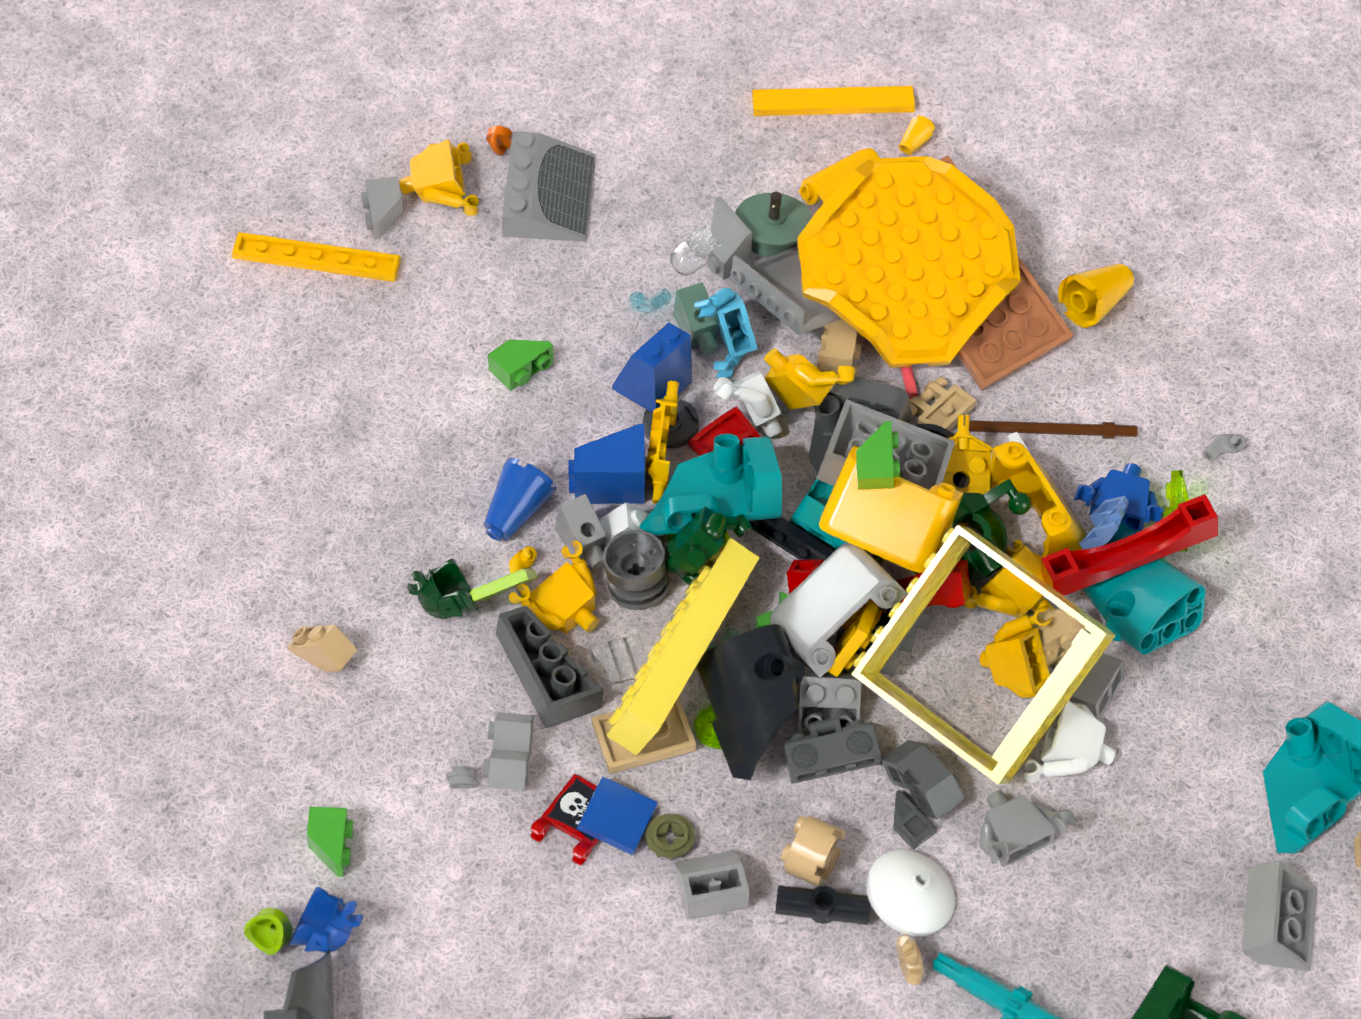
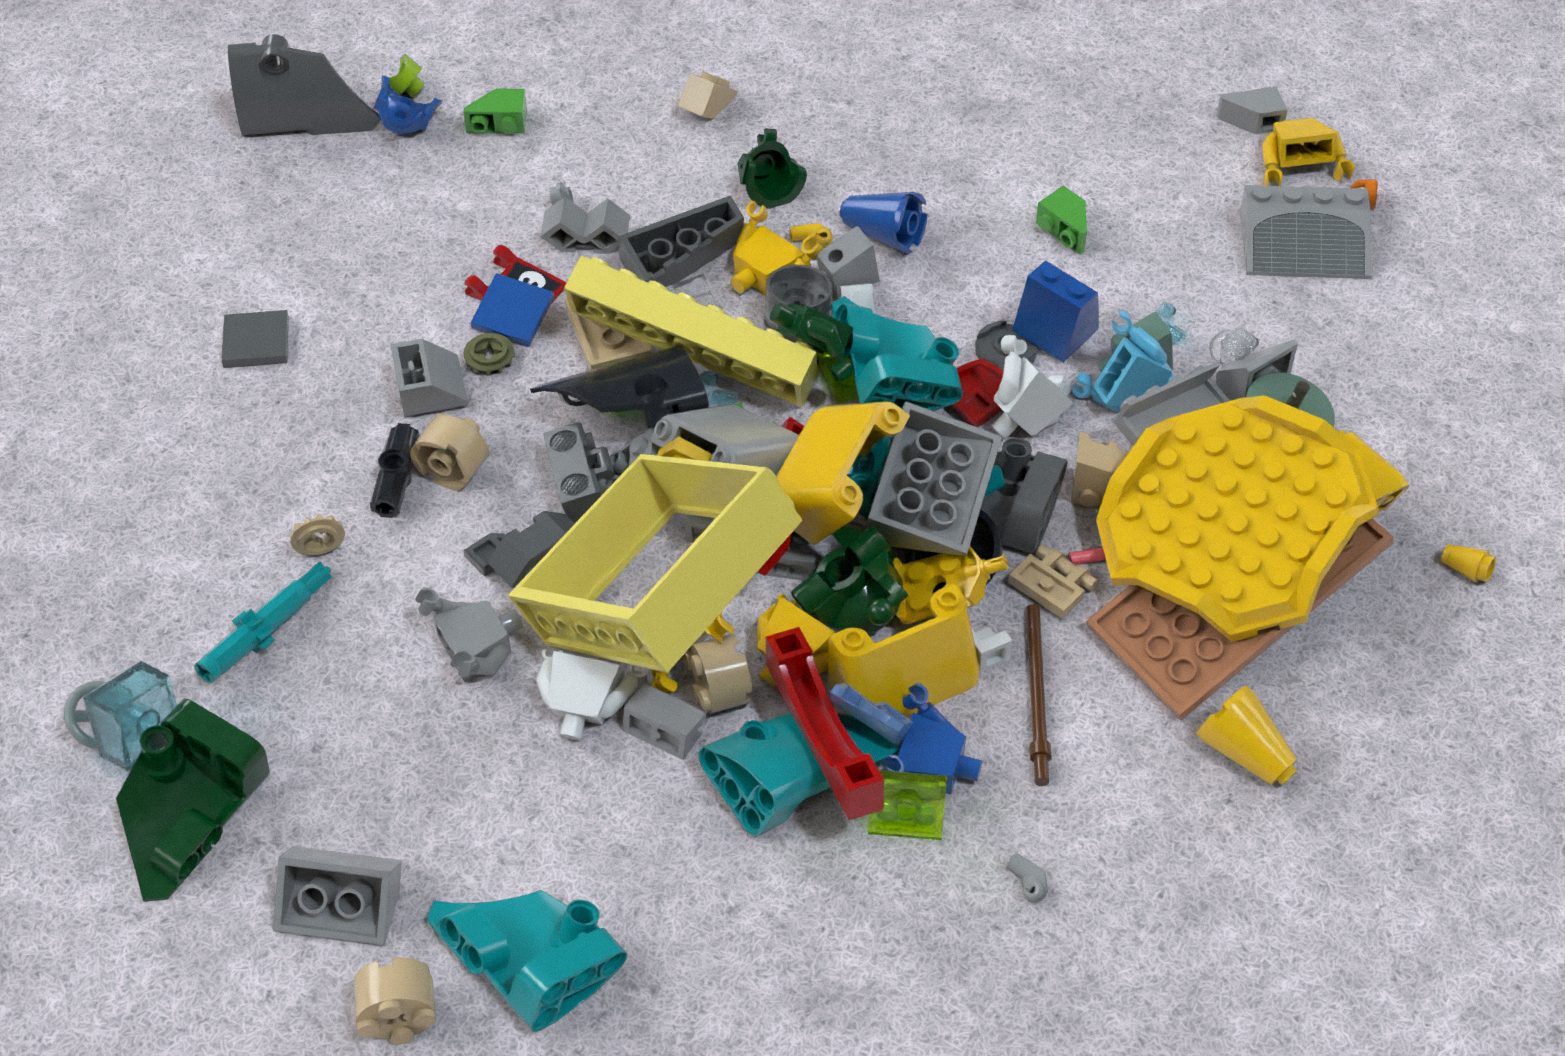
camera: 90 degrees right, 5 degrees down
(316, 256) = (1183, 74): yellow tile -> none
(503, 584) = (770, 203): tile -> none
(610, 468) = (928, 284): blue slope -> none
(662, 417) = (982, 314): yellow plate -> none
(799, 381) = (1047, 418): yellow torso -> none
(833, 100) = (1507, 487): yellow tile -> none
(875, 459) = (871, 411): bright green slope -> none
(903, 901) = (406, 560): white dish -> none

